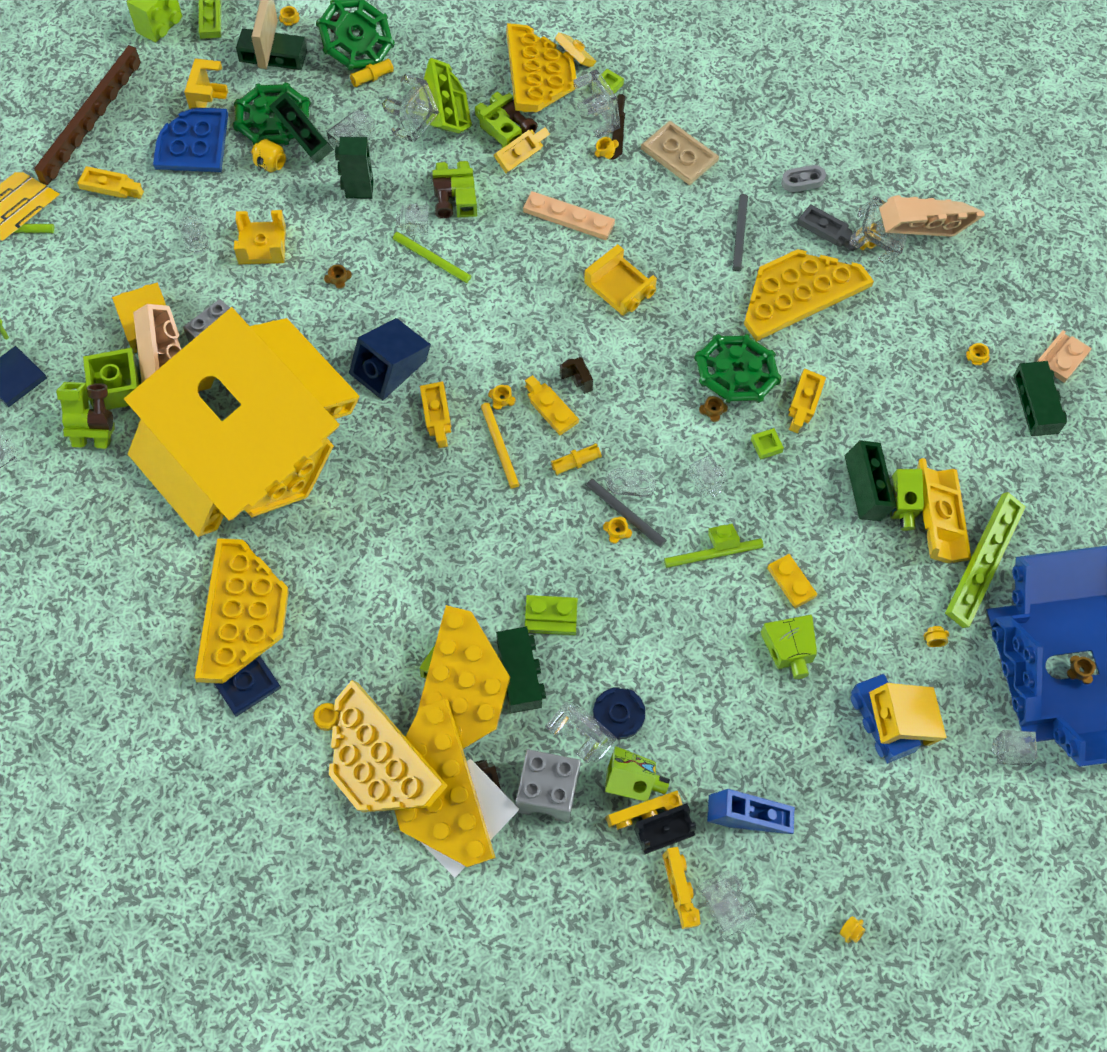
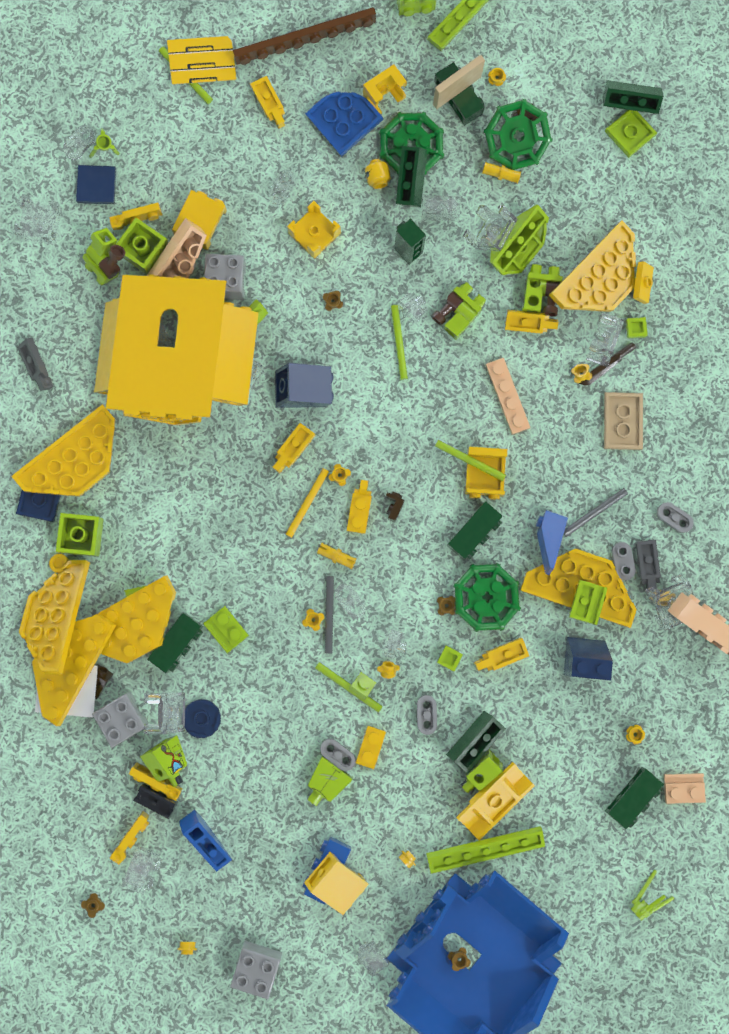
camera: 45 degrees right, 20 degrees up
(75, 366) = (146, 212): none -> yellow hinge
(110, 567) = (35, 364): none -> dark grey hinge
(321, 665) = (79, 534): none -> lime brick
(596, 283) = (470, 460): none -> lime bar
(666, 330) = (475, 531): none -> dark green brick
(714, 1000) = (94, 899): none -> pearl gold plate
(729, 502) = (388, 669): none -> yellow plate
(733, 276) = (549, 537): none -> slope
(771, 612) = (337, 754): none -> light grey plate
(805, 242) = (621, 561): none -> light grey plate
(806, 504) = (428, 714): none -> light grey plate
(819, 290) = (588, 602): none -> lime plate
(876, 332) = (587, 659): none -> dark blue slope
(937, 872) = (256, 970): none -> light grey piece

